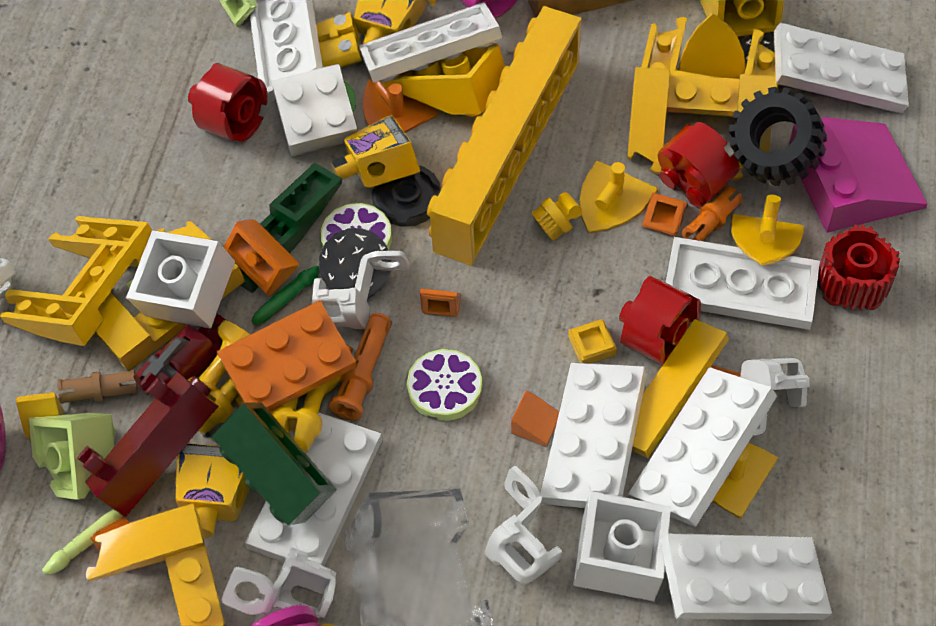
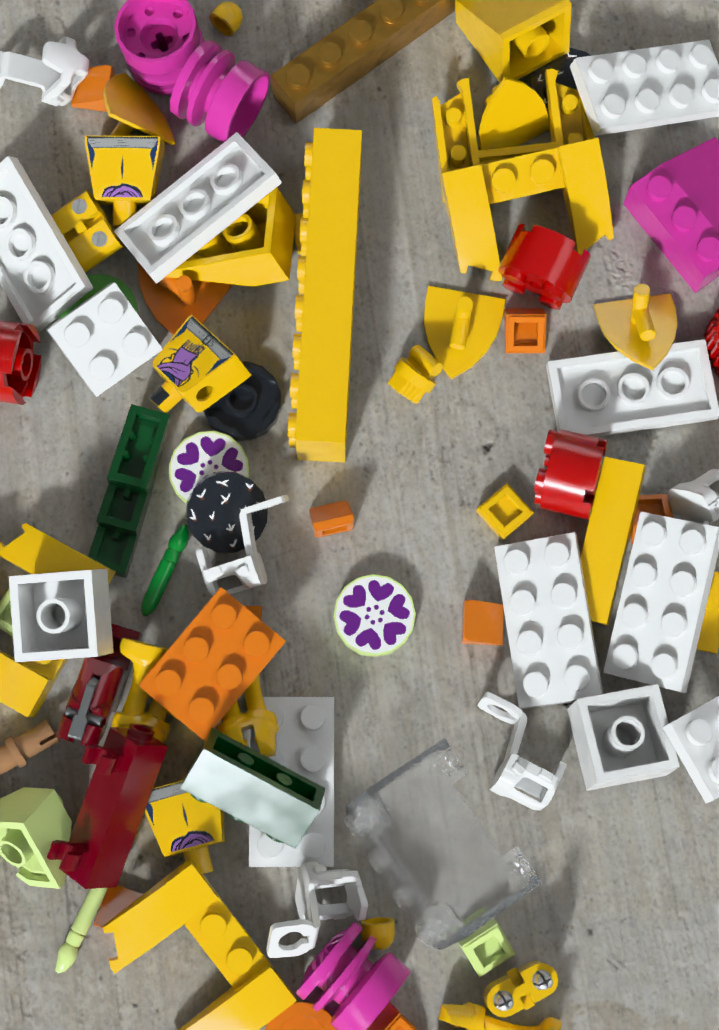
camera: 25 degrees left, 20 degrees up
(260, 255) = (122, 540): orange slope -> none
(359, 381) = (287, 661): orange pin -> none
(713, 215) = (576, 319): orange pin -> none
(763, 113) = (589, 216): black tyre -> none

